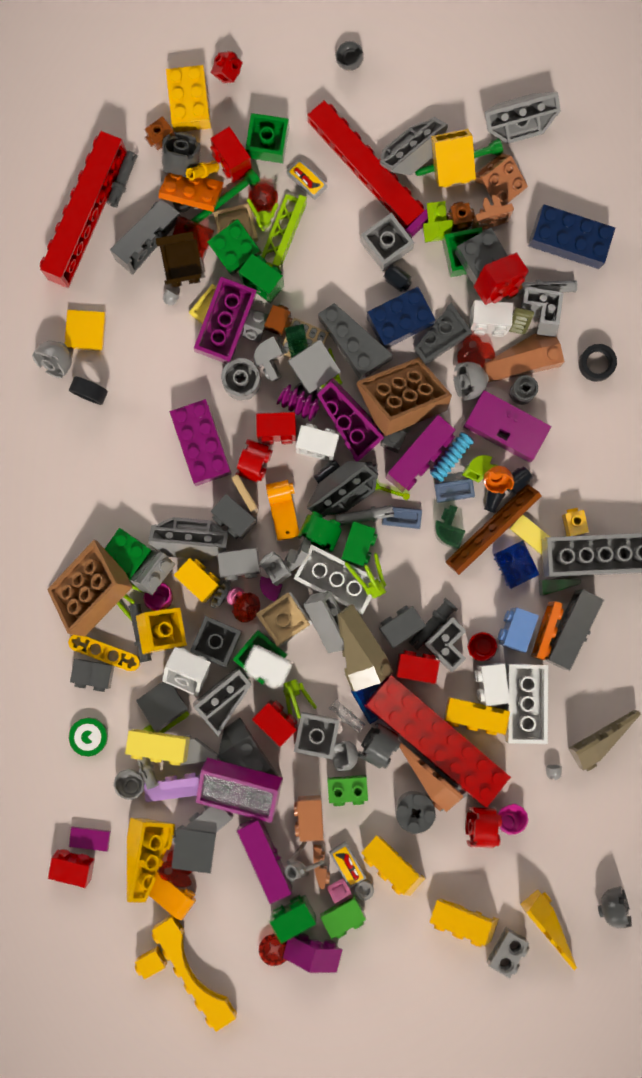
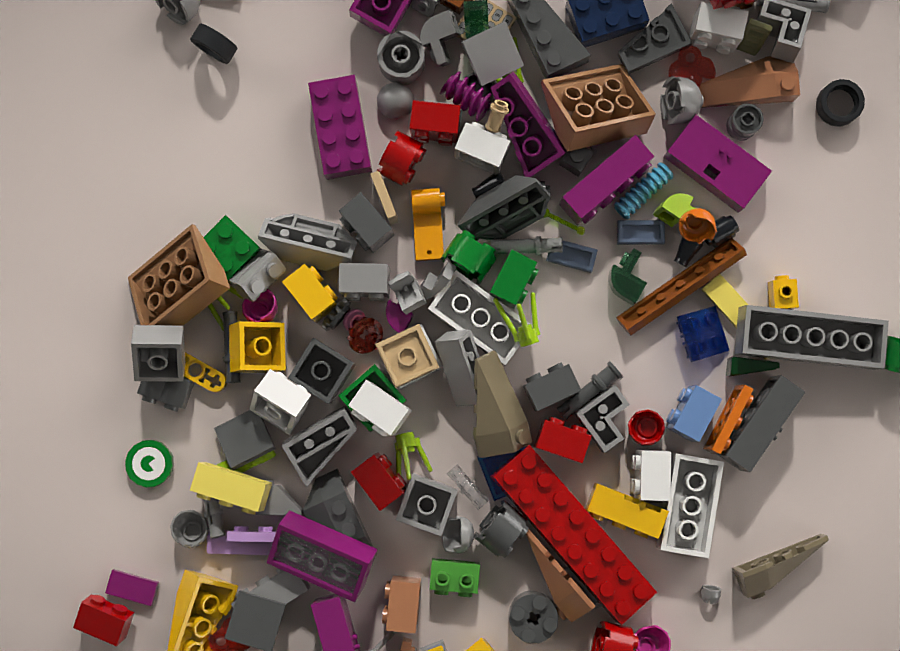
camera: 15 degrees right, 0 degrees up
(83, 647) = (158, 353): none -> light grey brick
(241, 414) = (395, 100): none -> light grey hair
(326, 412) = (498, 111): none -> tan pin

